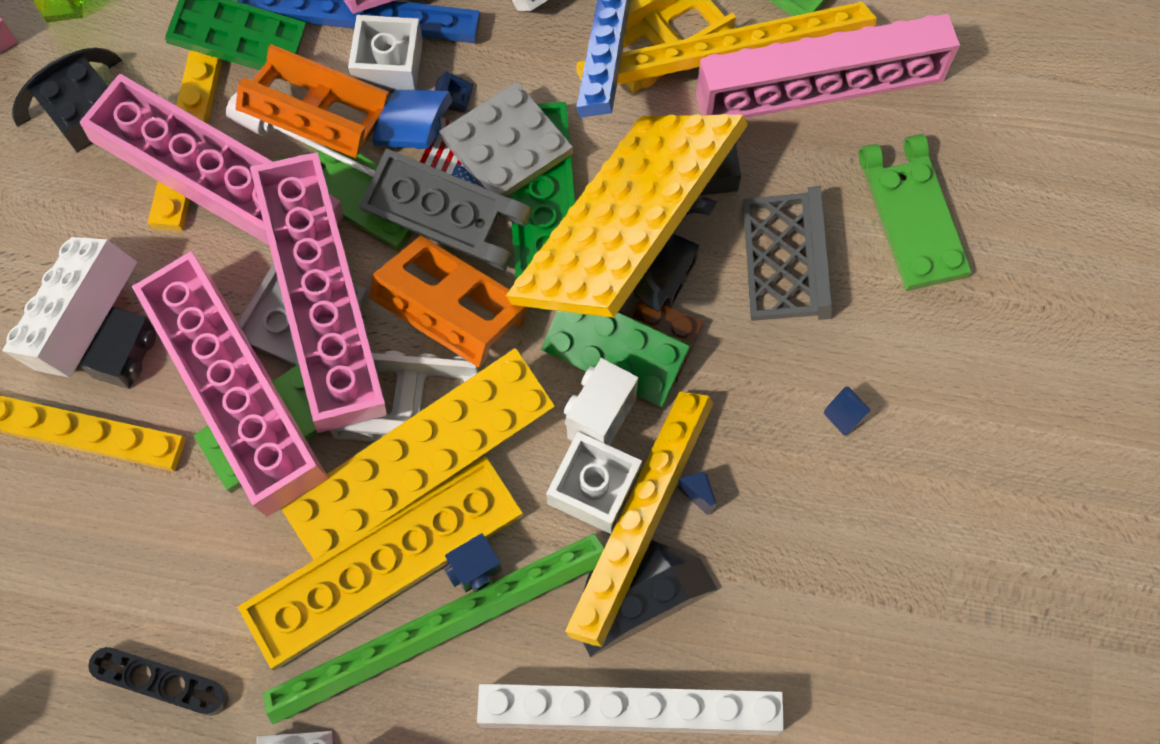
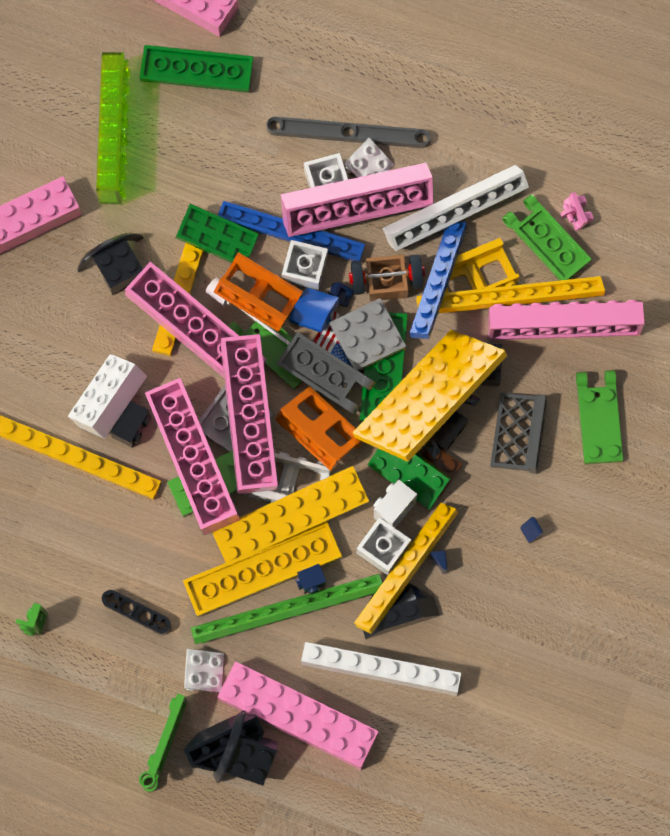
camera: 10 degrees right, 5 degrees up
(523, 47) = (387, 276): none -> medium nougat brick

